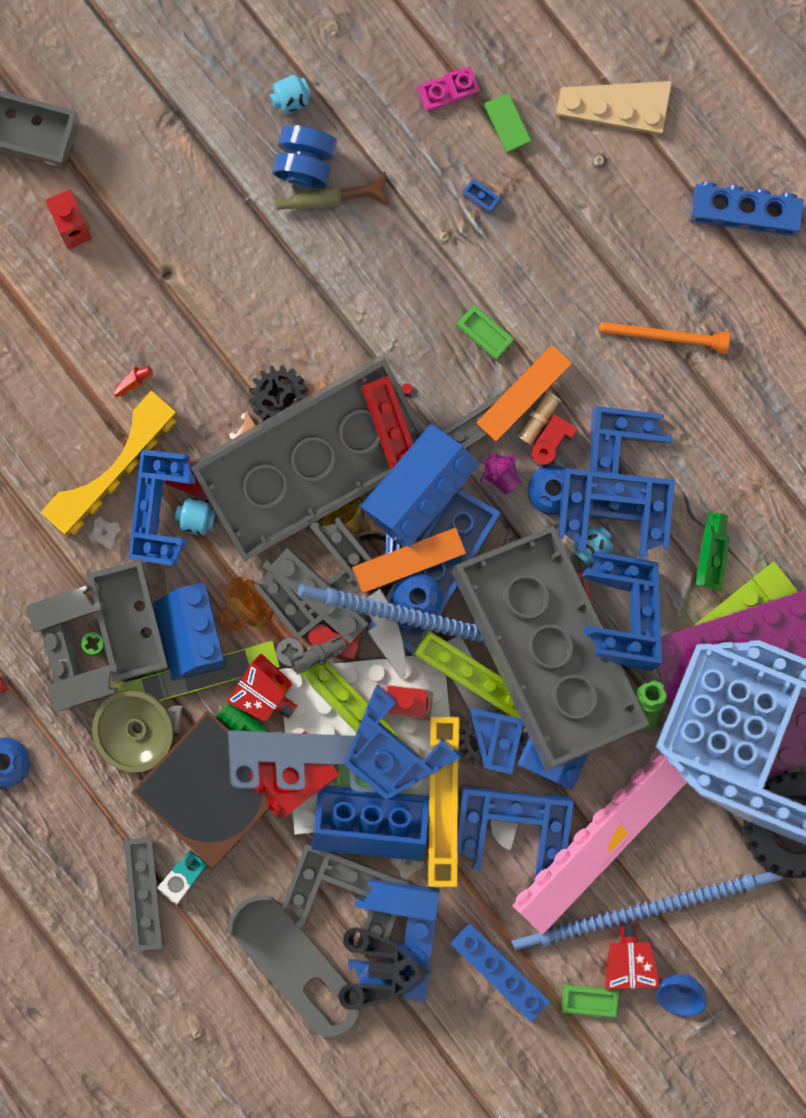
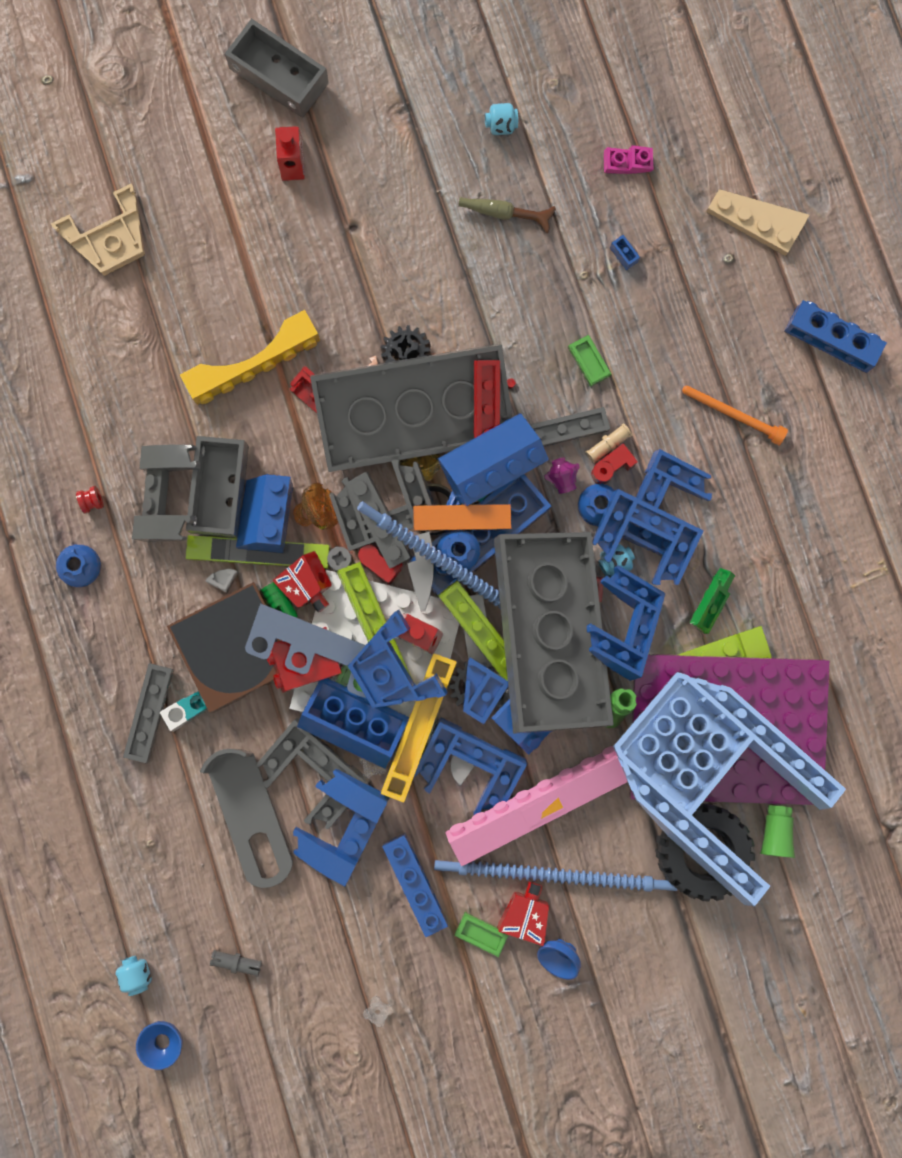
camera: 15 degrees right, 0 degrees up
(85, 643) = (178, 492): bright green axle -> none
(107, 540) = (227, 418): clear plate -> none
(121, 742) = (176, 576): olive dish -> none
(132, 380) = (295, 298): red bar -> none
(144, 541) = (284, 372): blue wedge -> none
(196, 516) = (303, 423): medium azure head -> none
(304, 156) = (495, 168): blue wheel -> none
(318, 654) = (360, 568): dark grey pin -> none
(382, 946) = (326, 829): black connector -> none
(507, 123) = (666, 202): bright green tile -> none
(523, 393) = (604, 418): orange tile -> none

